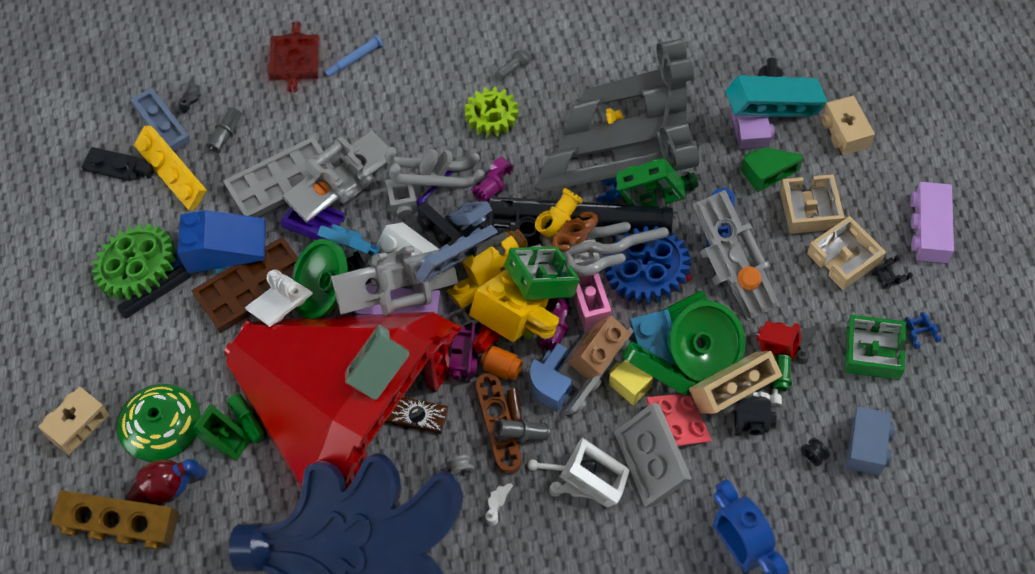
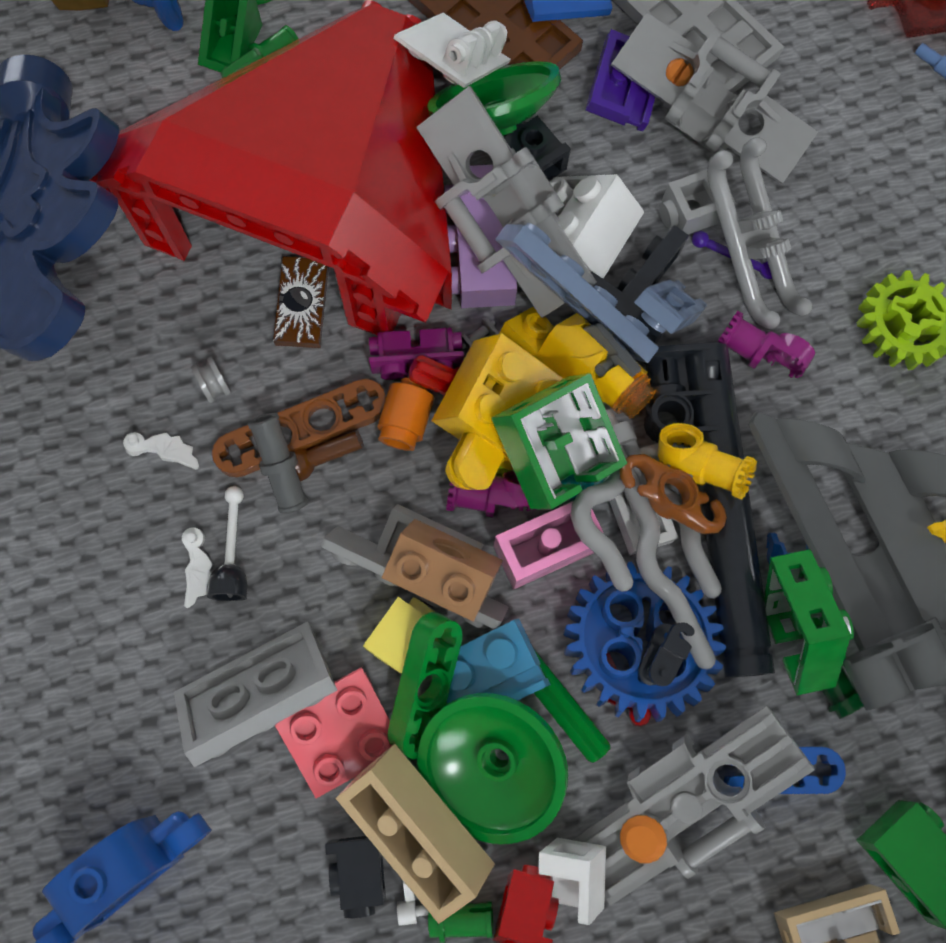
camera: 75 degrees right, 15 degrees up
(348, 238) = (581, 128): dark azure plate -> none
(376, 363) = (253, 153): sand green panel -> none
(548, 384) = (378, 489): medium blue brick -> none
(588, 482) = (188, 591): white tile -> none
(662, 248) = (665, 654): none -> black piece
(763, 310) = (577, 874): none -> white panel

